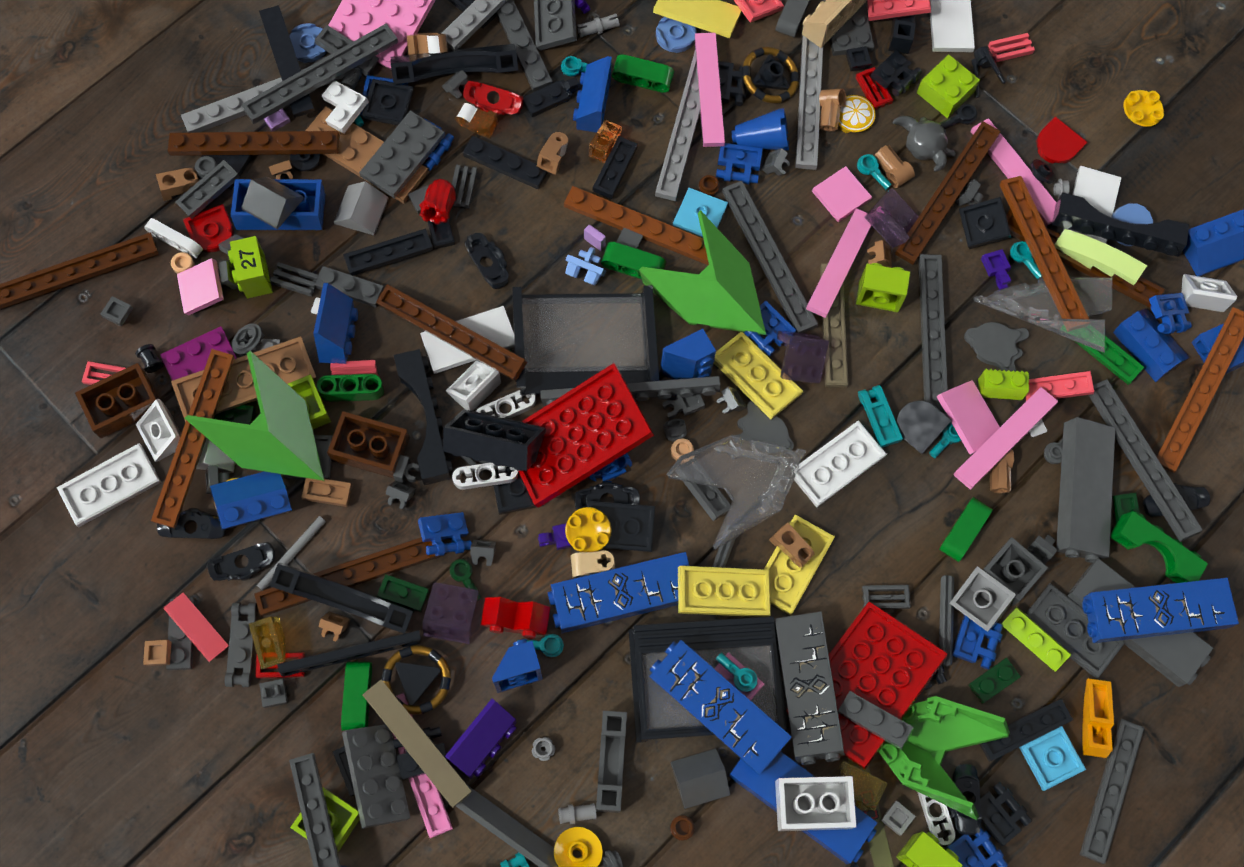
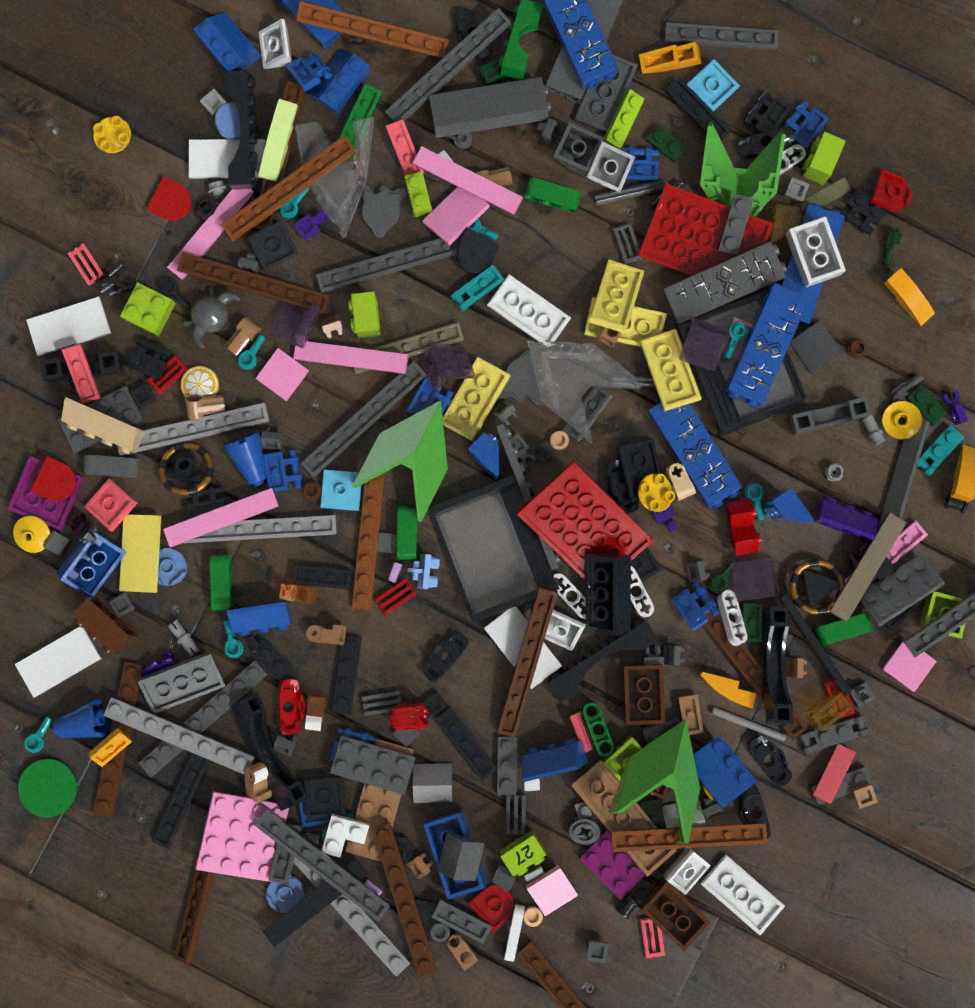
camera: 105 degrees left, 15 degrees up
(275, 758) = (908, 669): none -> bright pink tile
(339, 540) = (729, 689): none -> light orange slope
(398, 574) = (728, 624): none -> white beam
(565, 216) = (382, 605): none -> red tile
(743, 635) = (704, 344): none -> clear purple bracket
(827, 558) = (616, 296): none -> light yellow tile
(1158, 210) = (212, 102): none -> light grey plate

